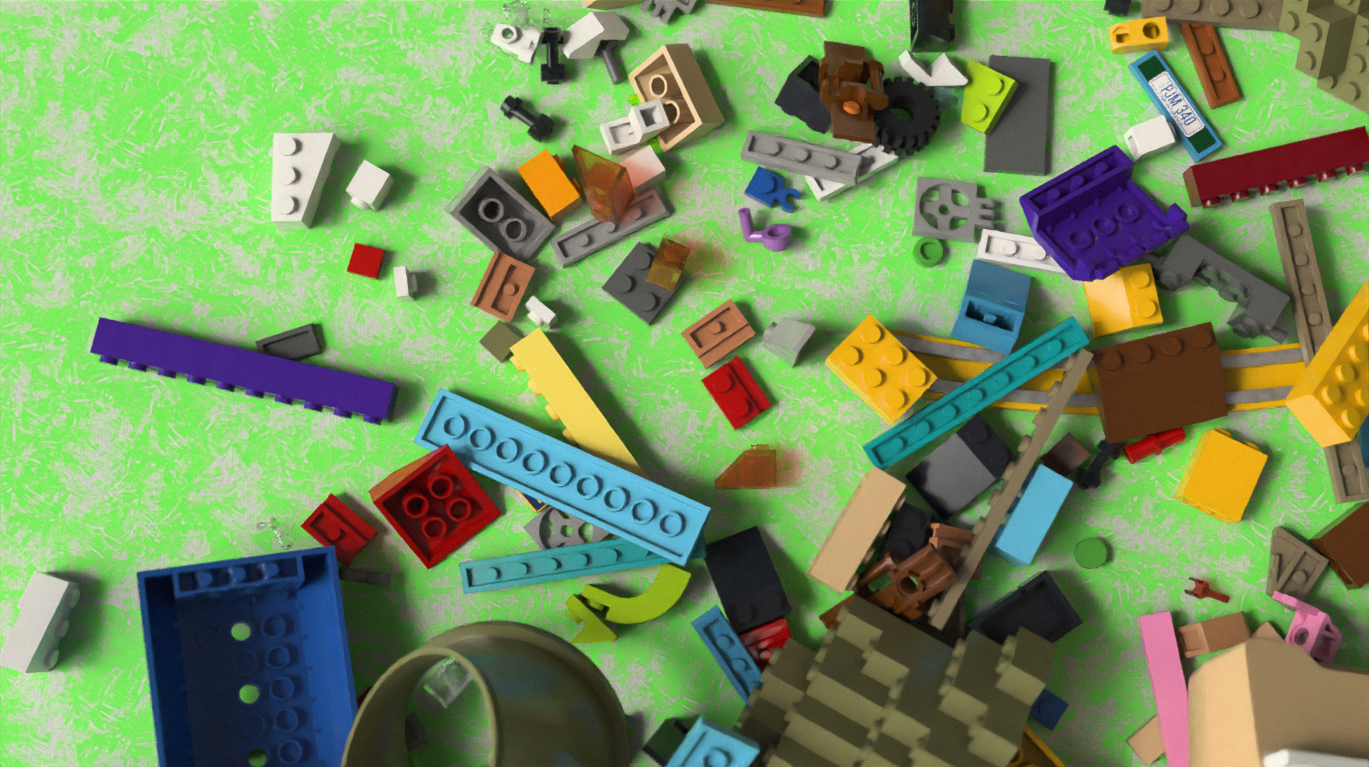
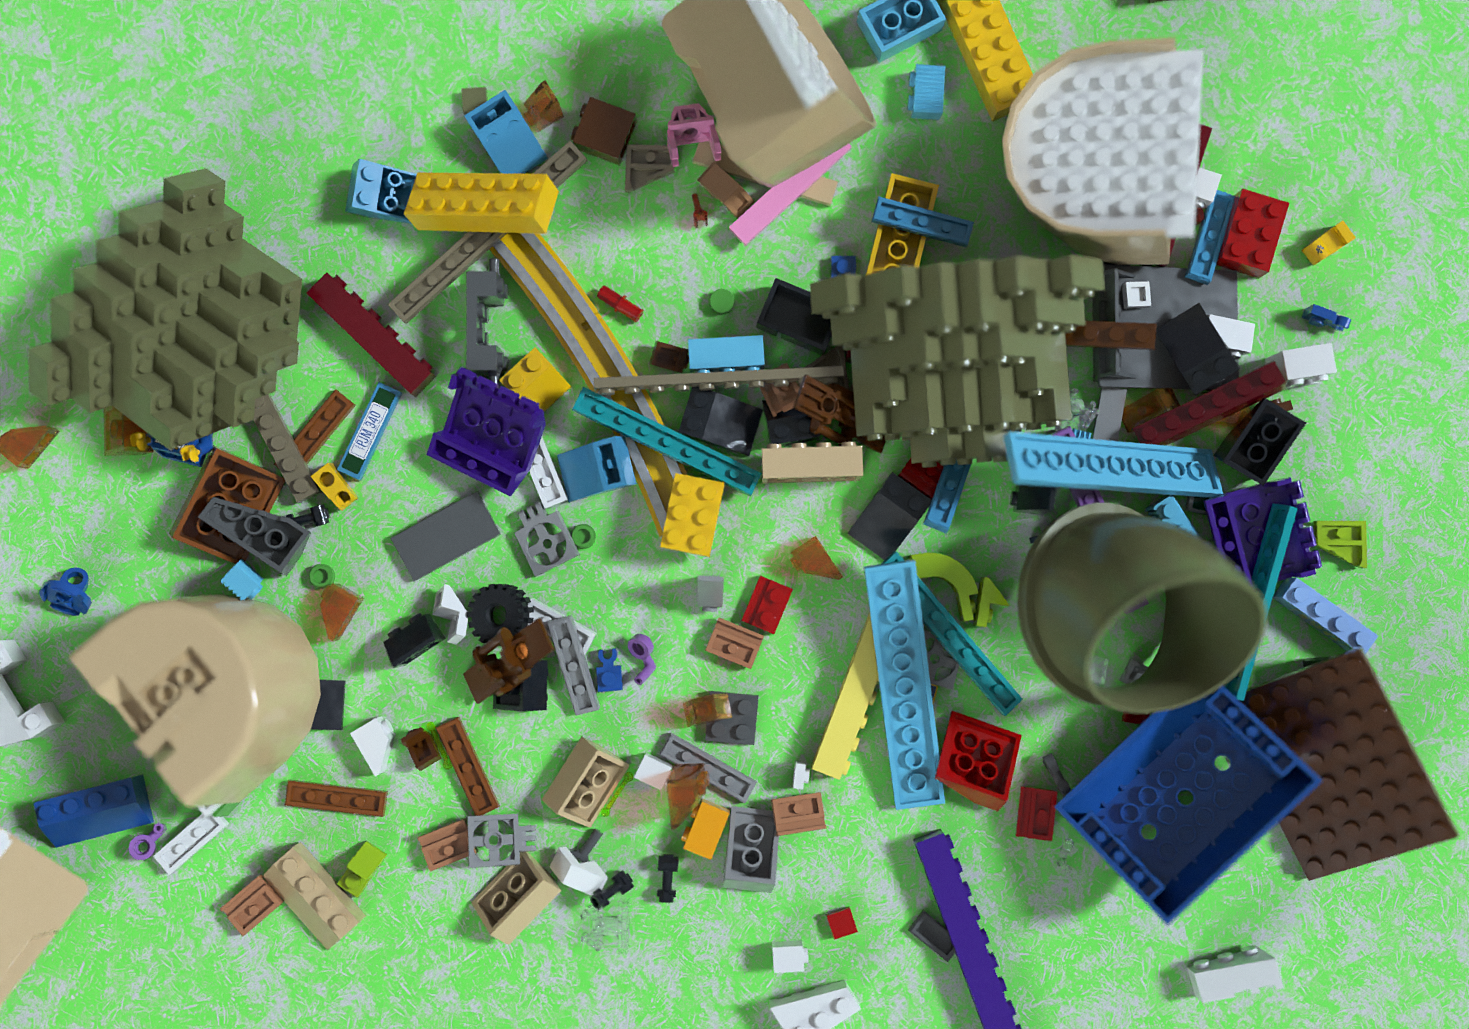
camera: 125 degrees left, 5 degrees up
(405, 284) = (840, 884): white plate -> none
(499, 341) = (836, 790): olive tile -> none
(523, 43) = (620, 915): white plate -> none
(633, 130) = (625, 796): white slope -> none
(945, 96) = (465, 593): clear light blue plate -> none
(985, 97) = (448, 565): lime wing -> none
(1091, 477) = (672, 332): black bar -> none
(1150, 138) = (405, 433): white brick -> none
(1158, 383) = (580, 325): reddish brown slope -> none
(1221, 475) = (614, 247): yellow brick -> none

